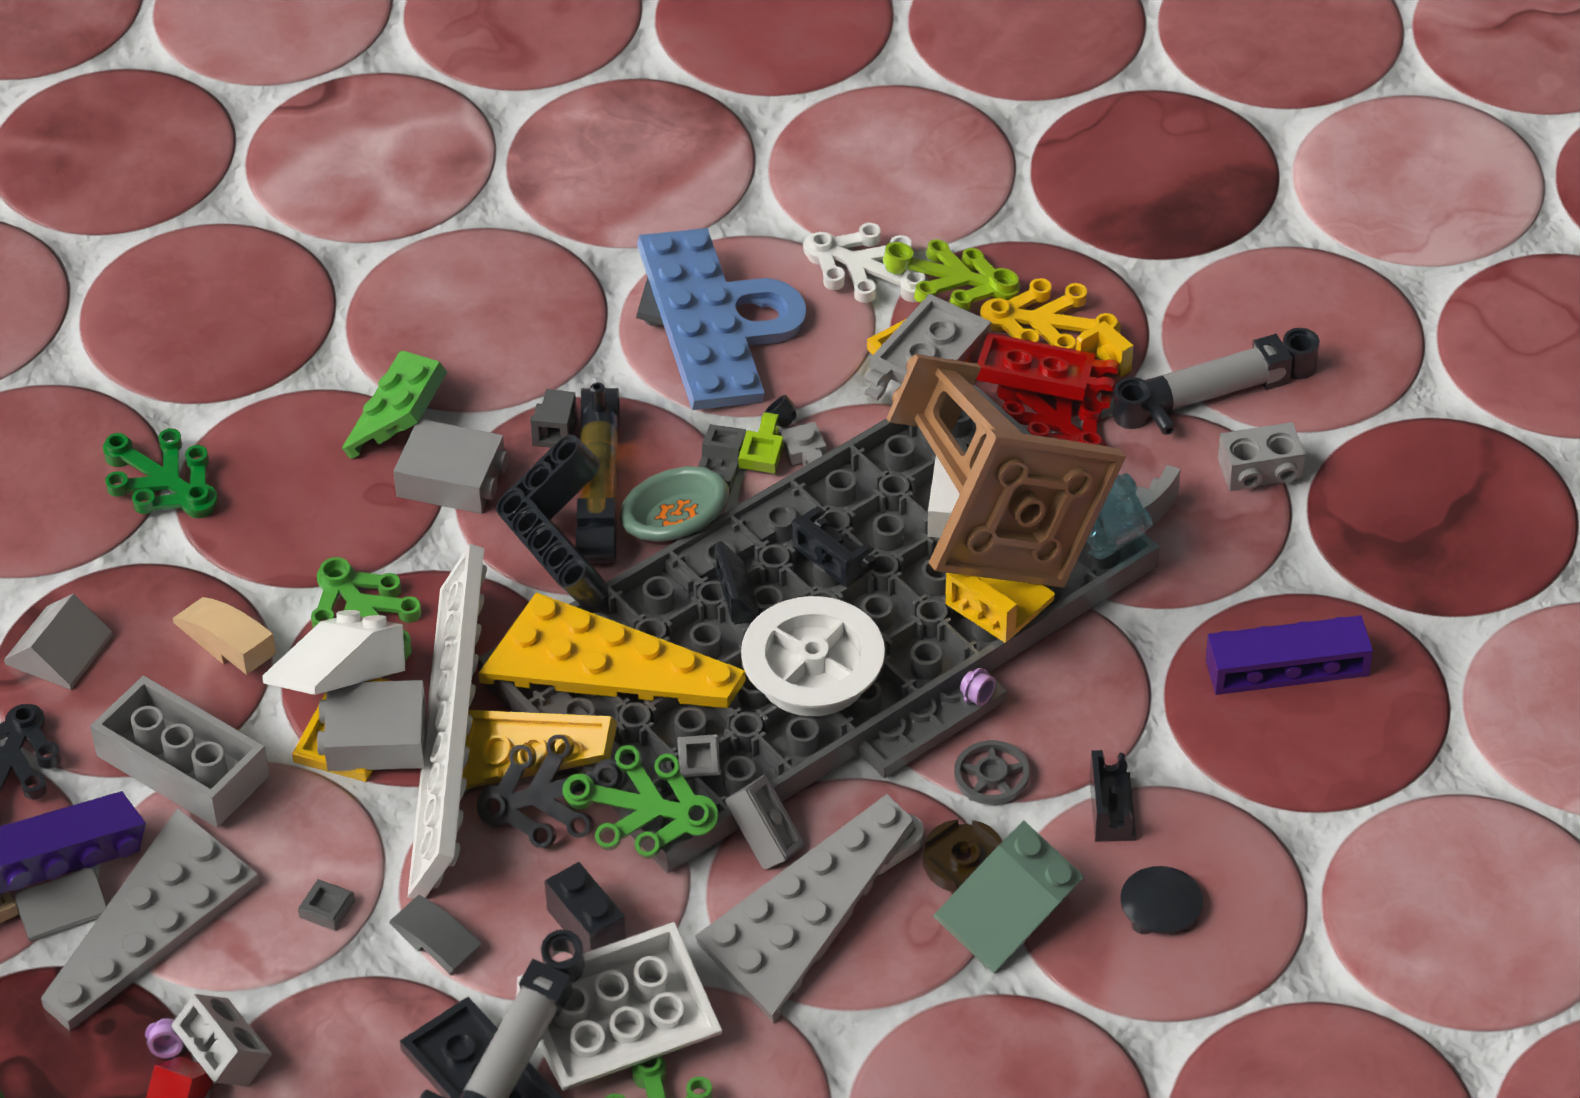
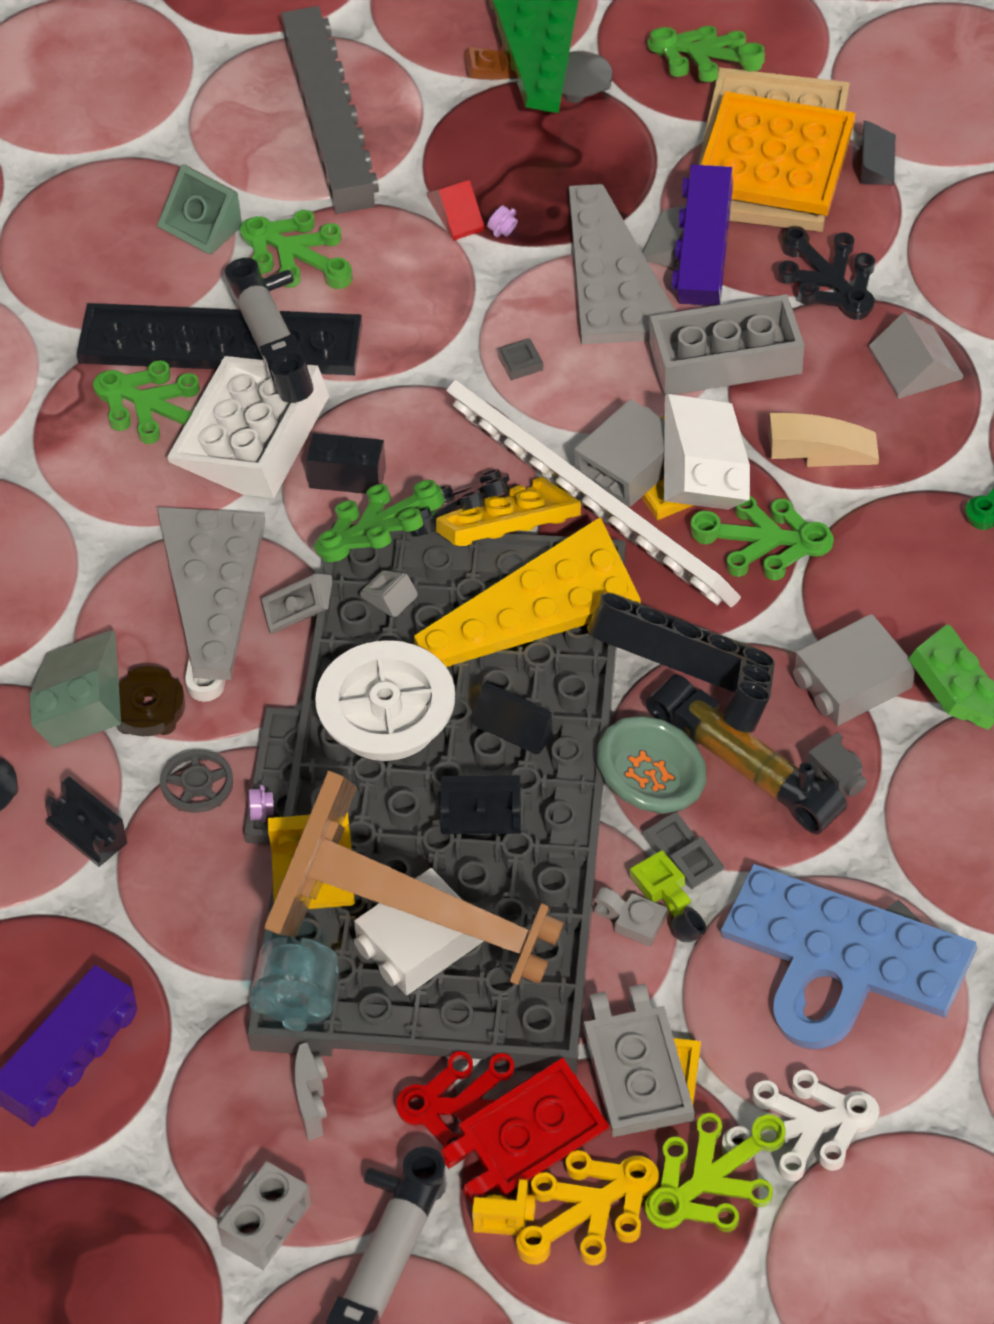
camera: 135 degrees right, 5 degrees up
(221, 1040) = (460, 224): light grey brick -> none
(436, 932) = (423, 388): dark grey slope -> none

